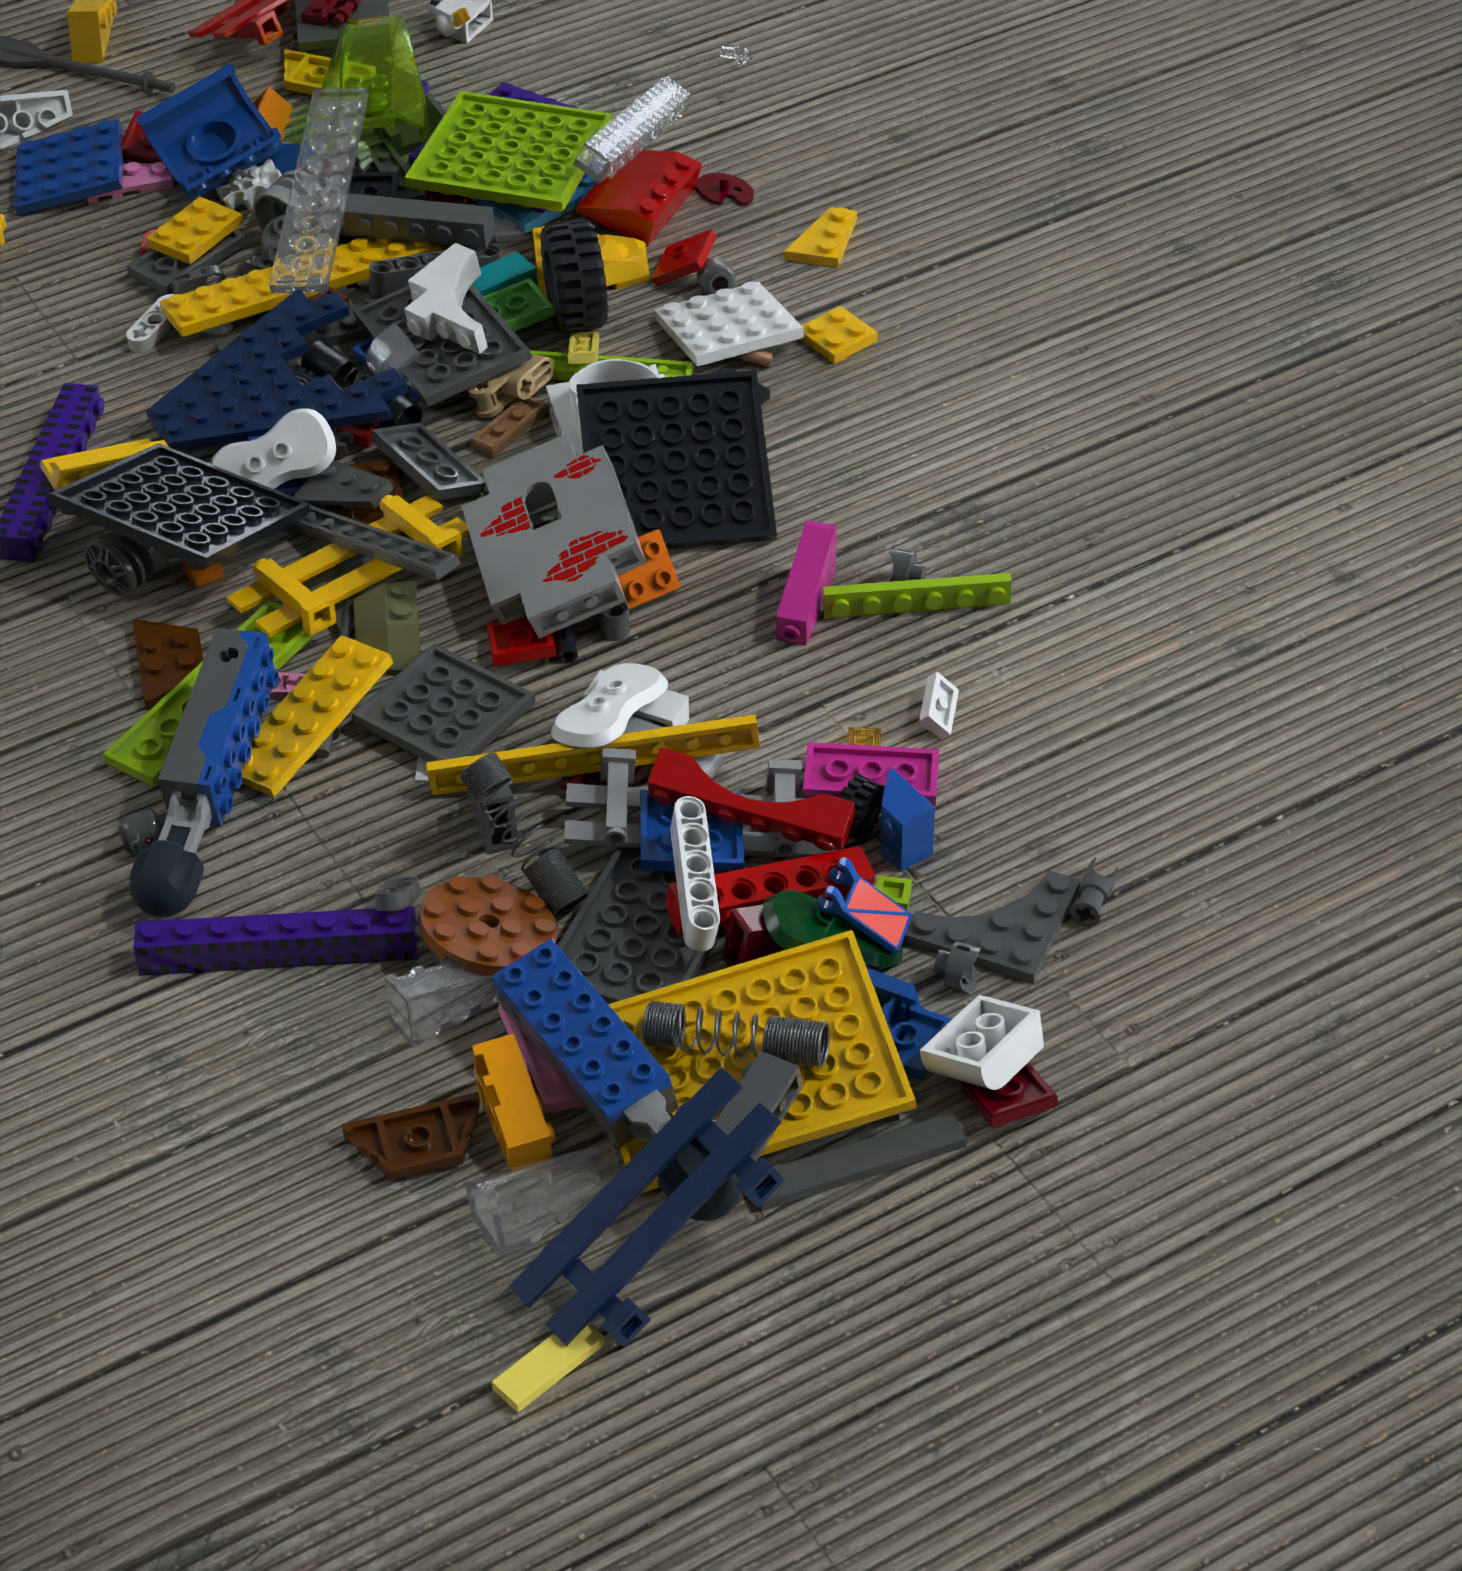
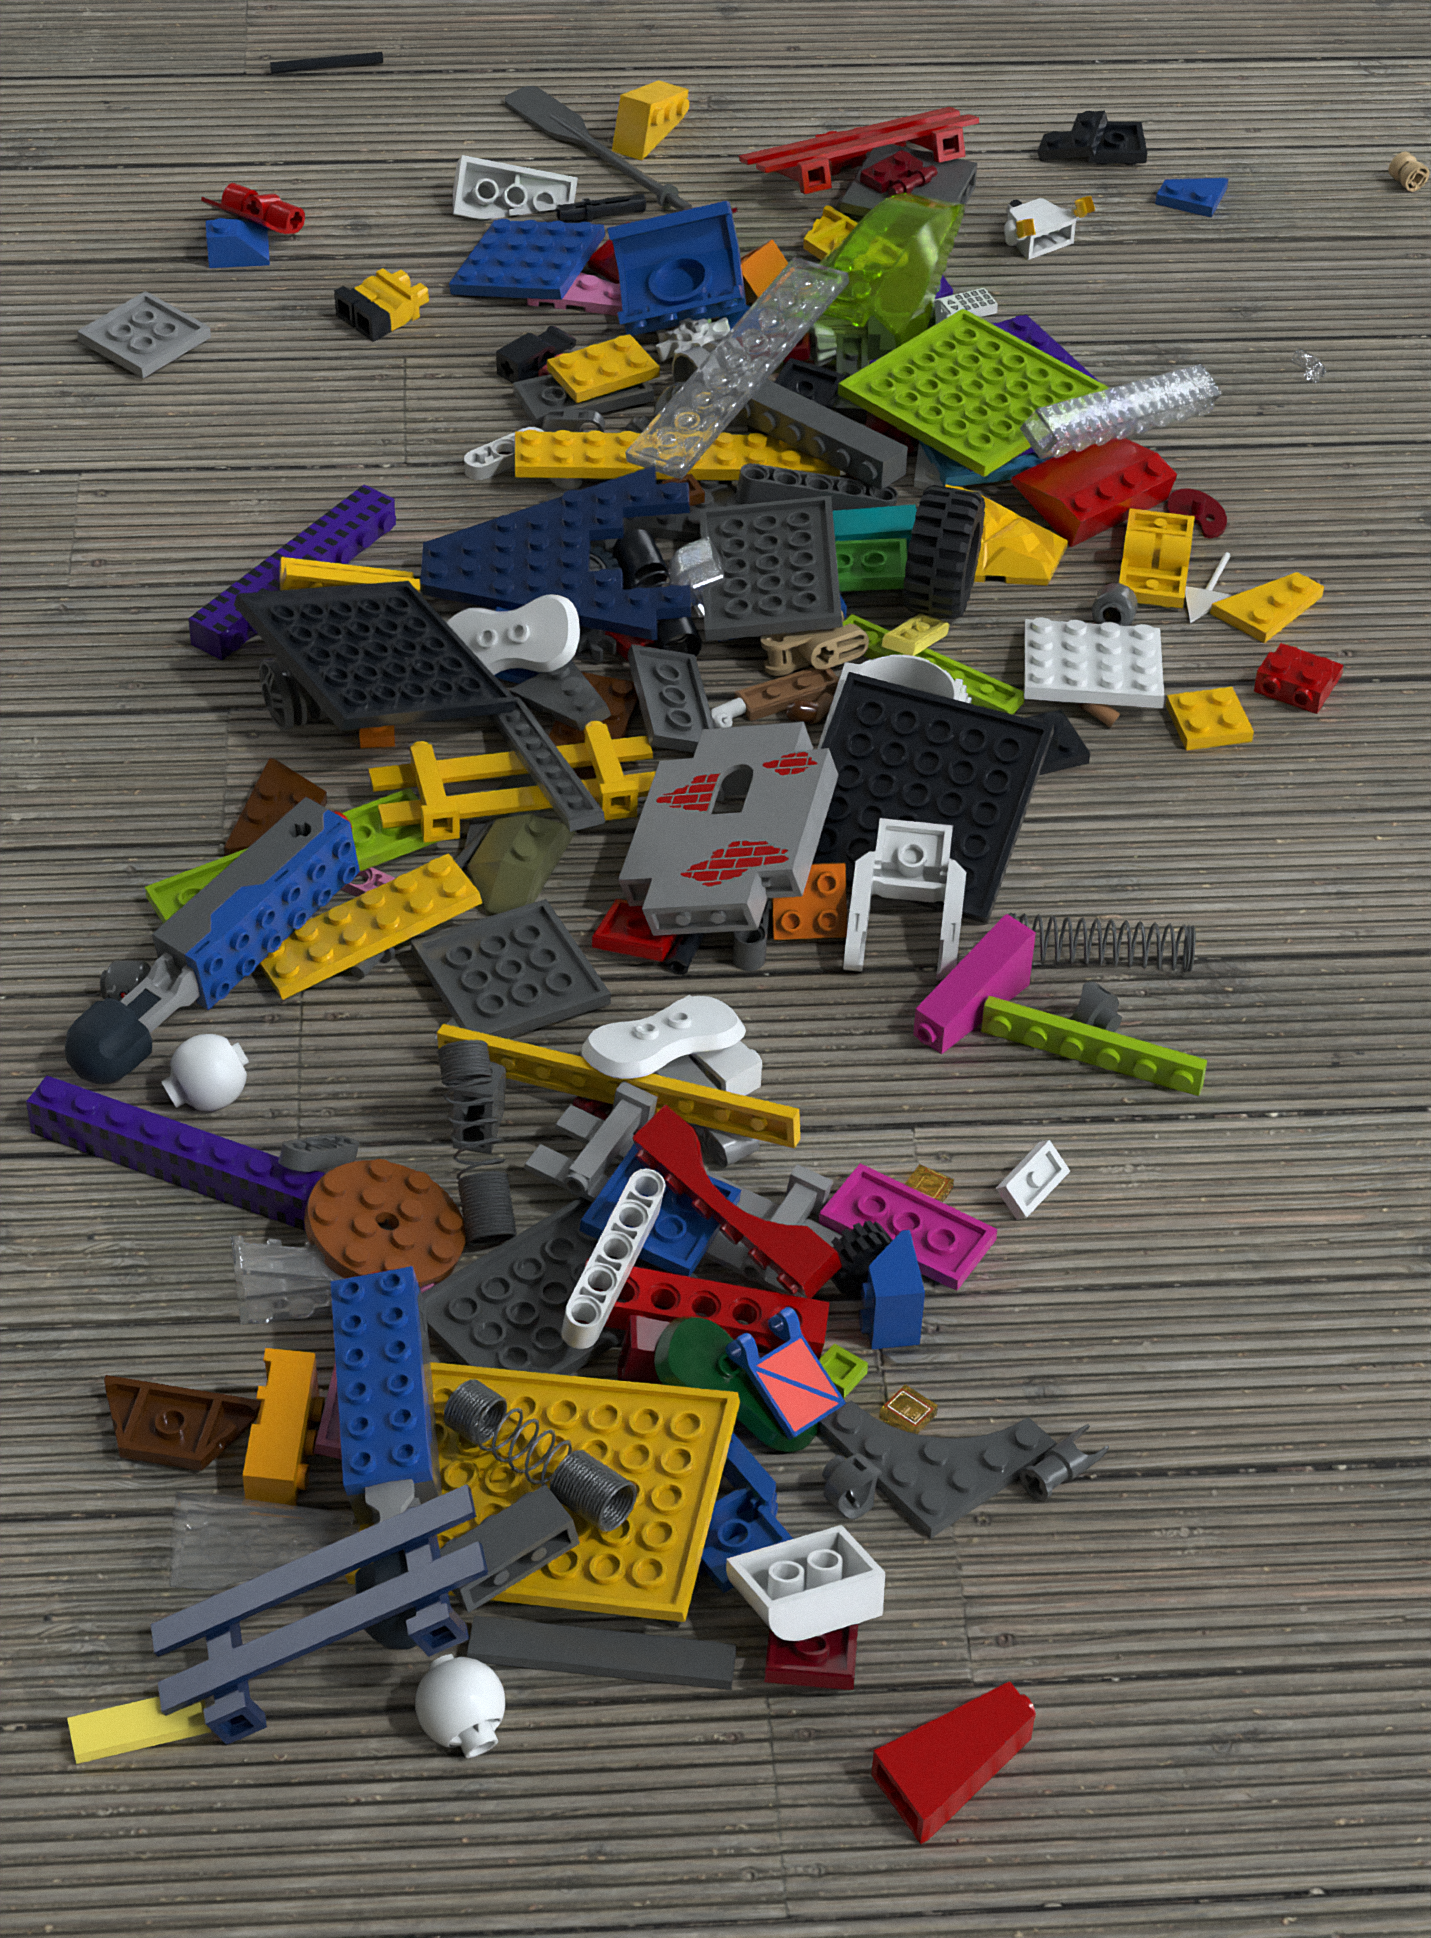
camera: 25 degrees right, 0 degrees up
(91, 112) = (591, 209): none -> black pin
(124, 239) = (529, 353): none -> black piece
(259, 872) = (206, 1073): none -> white brick
(439, 297) = (786, 526): white arch -> none
(448, 89) = (975, 301): none -> white tile
(473, 457) = (723, 714): none -> white arm
(537, 433) = (809, 711): none -> reddish brown arm
(684, 257) = (1093, 573): red plate -> none
(708, 513) = (908, 865): none -> white plate
(729, 223) = (1157, 556): none -> yellow plate
(773, 251) = (1200, 600): none -> white piece
(786, 1238) = (460, 1704): none -> white brick
(882, 283) = (1297, 677): none -> red plate
(931, 495) = (1188, 951): none -> dark grey piece
(959, 901) = (908, 1410): none -> clear yellow tile
(1155, 1124) = (952, 1757): none -> red slope

